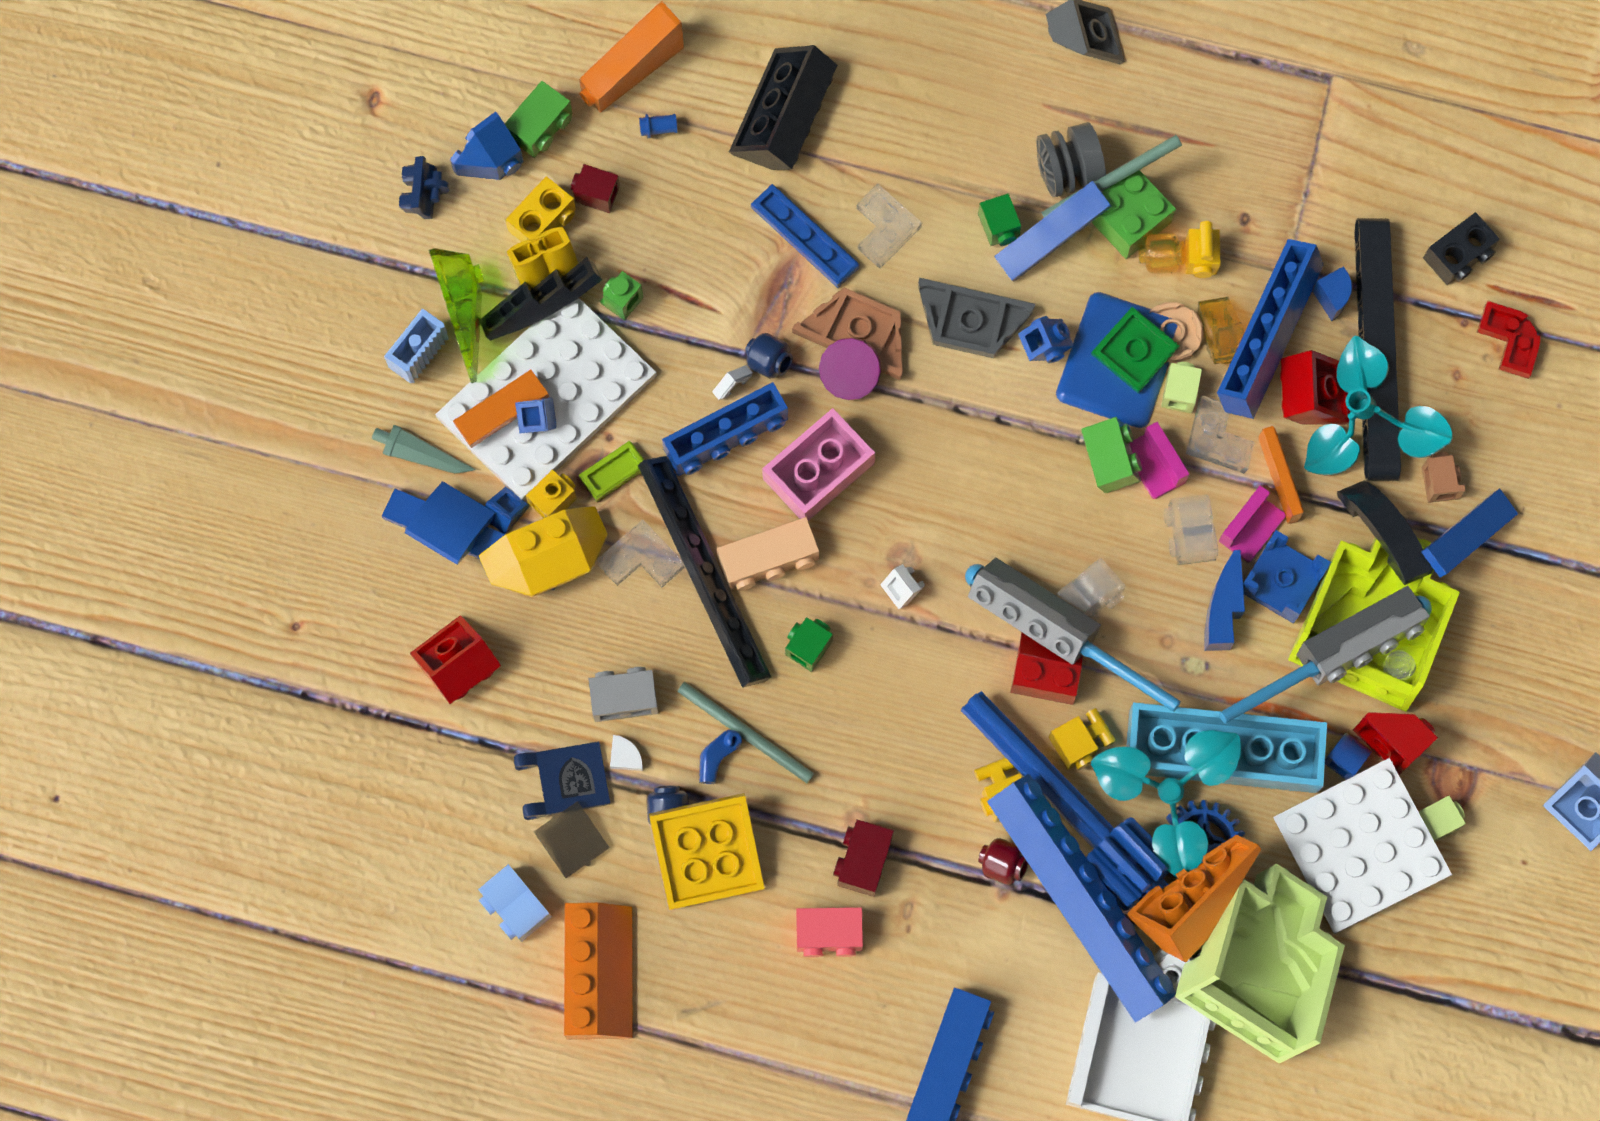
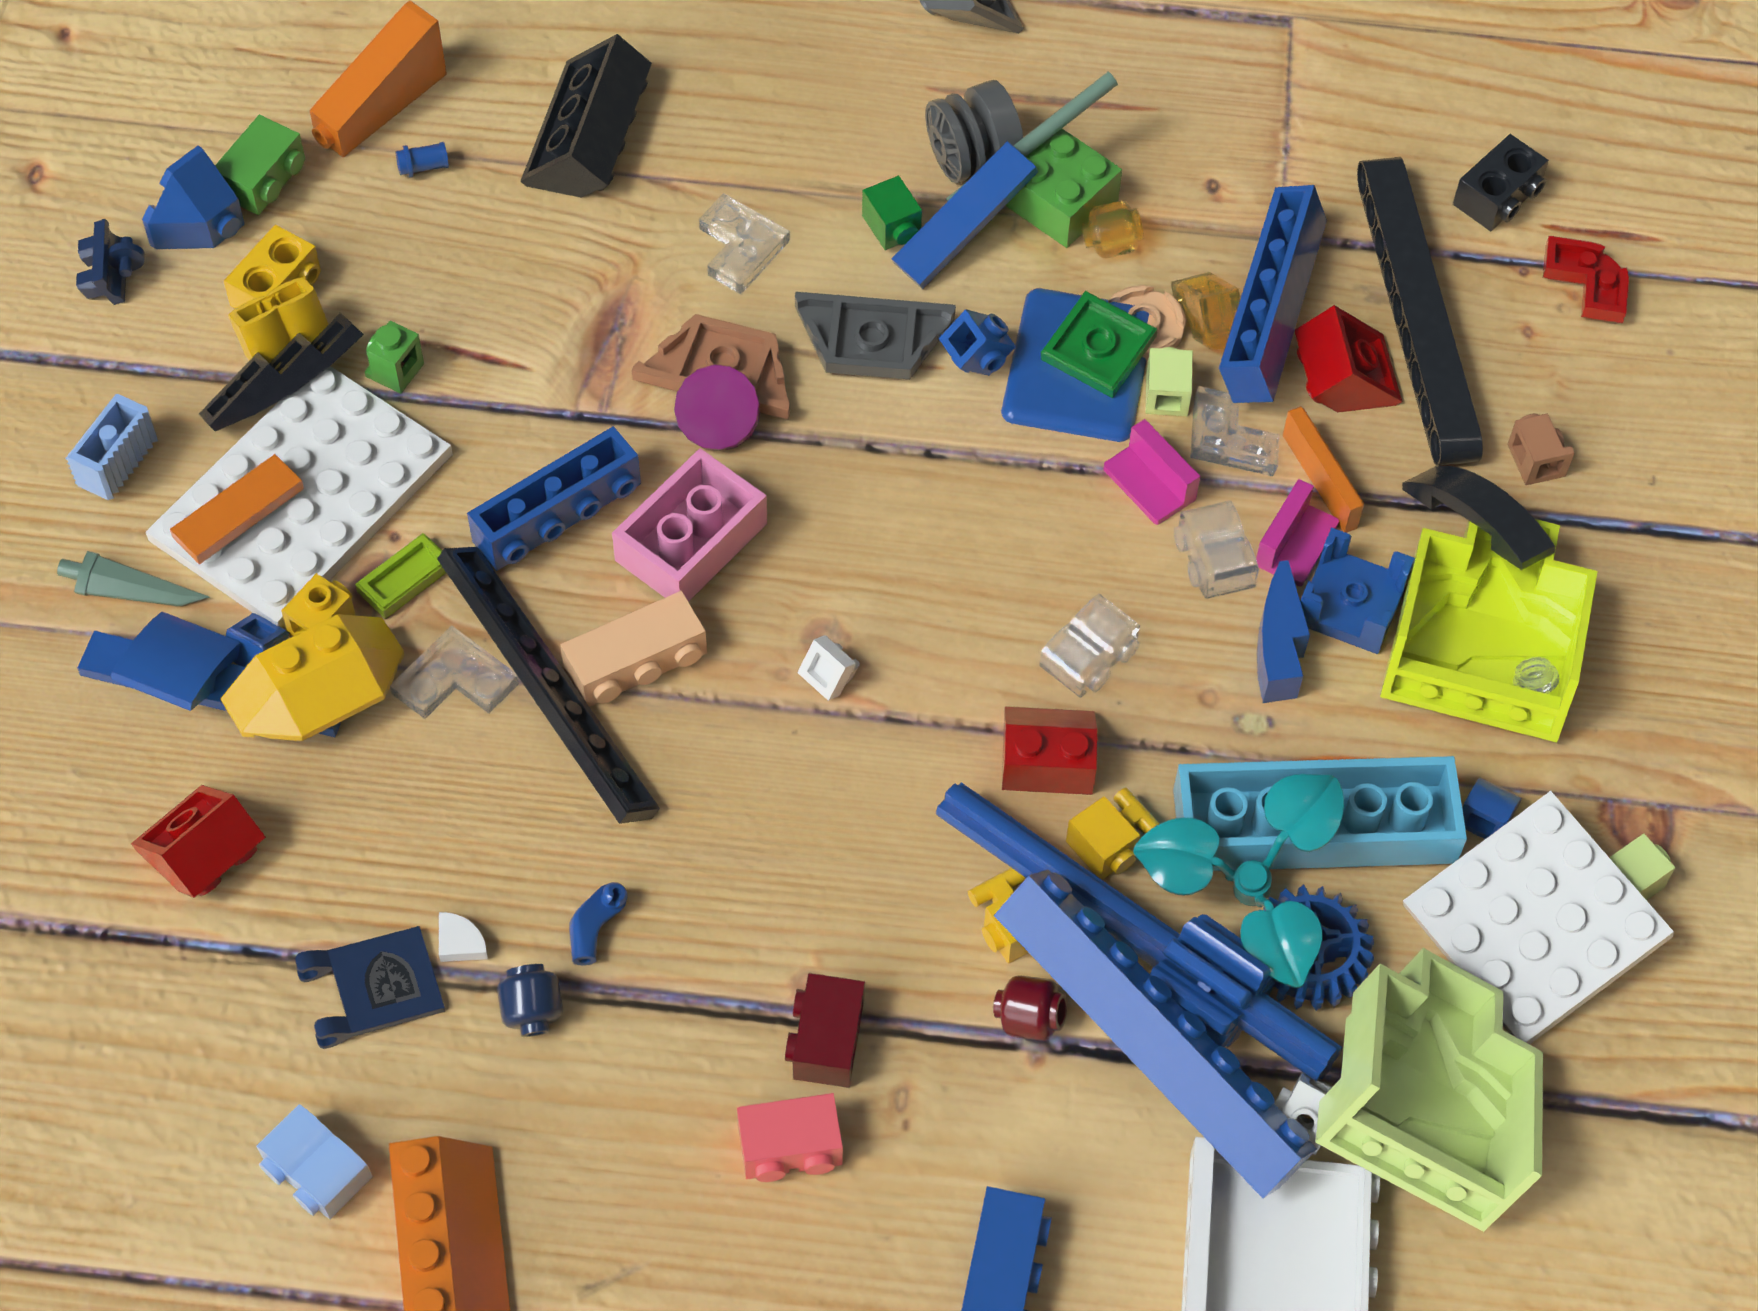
camera: 10 degrees left, 15 degrees down
(463, 299) = (172, 382): clear neon green wedge -> none
(536, 415) = (287, 508): blue slope -> none
(571, 839) = (391, 1064): clear smoke piece -> none
(595, 188) = (345, 237): dark red brick -> none
(623, 694) = (448, 856): light grey brick -> none
(706, 851) = (593, 1047): yellow plate -> none
(730, 380) = (555, 442): white tile -> none
(746, 732) = (635, 888): sand green piece -> none
(768, 355) = (603, 404): dark blue head -> none
(805, 235) = (635, 265): blue tile -> none
(808, 642) = (706, 756): green brick -> none
(1049, 621) = (1044, 679): piece -> none
(1111, 454) = (1090, 469): bright green brick -> none
(1191, 906) = (1315, 1017): orange wedge -> none
(1202, 250) = (1166, 219): yellow brick -> none
(1333, 292) = (1346, 249): blue brick -> none
(1348, 645) = (1460, 652): piece -> none
(1359, 368) = (1403, 331): teal plant -> none
(1396, 736) = (1553, 760): red slope -> none
(1469, 533) = (1591, 502): blue tile -> none

